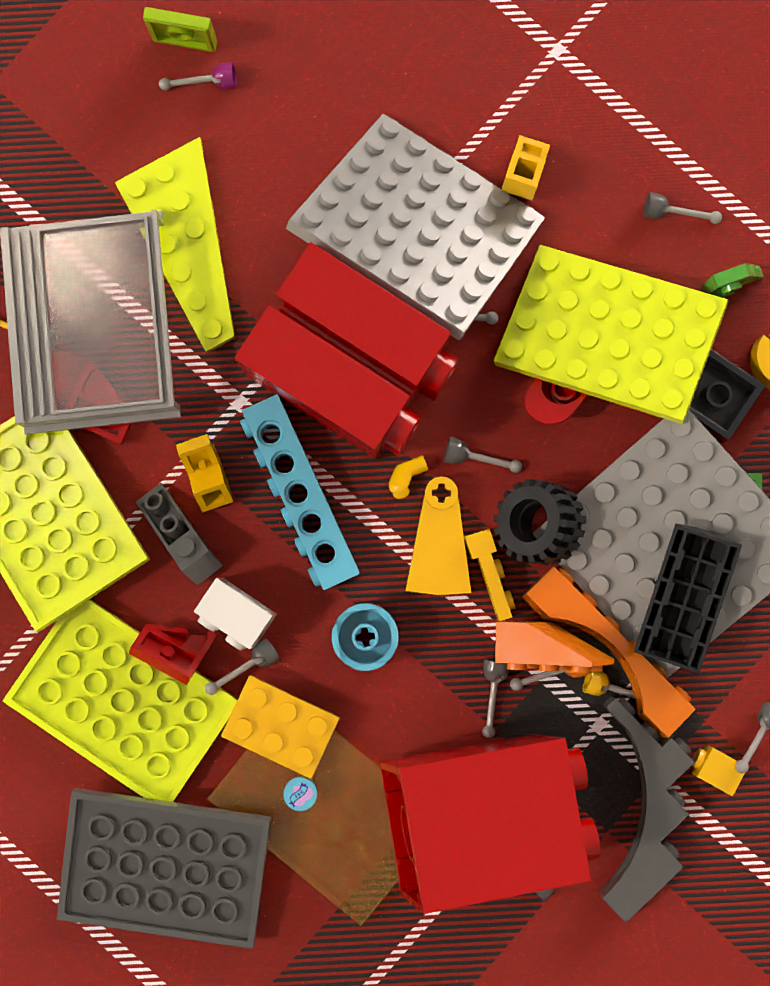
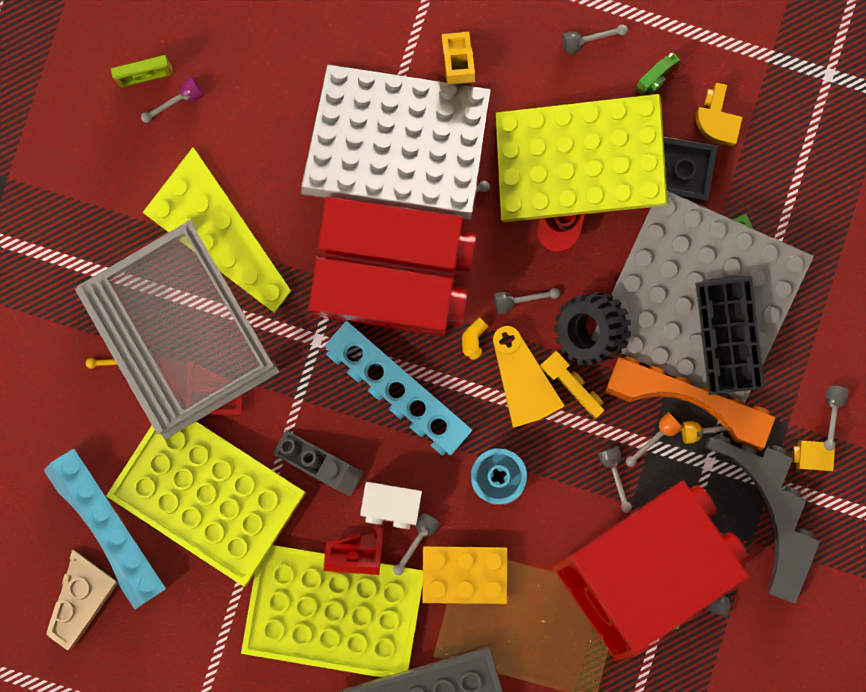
camera: 30 degrees left, 0 degrees up
(205, 473) = (318, 407): yellow brick -> none
(300, 793) = (503, 618): medium azure tile -> none
(545, 647) = (640, 422): orange slope -> none

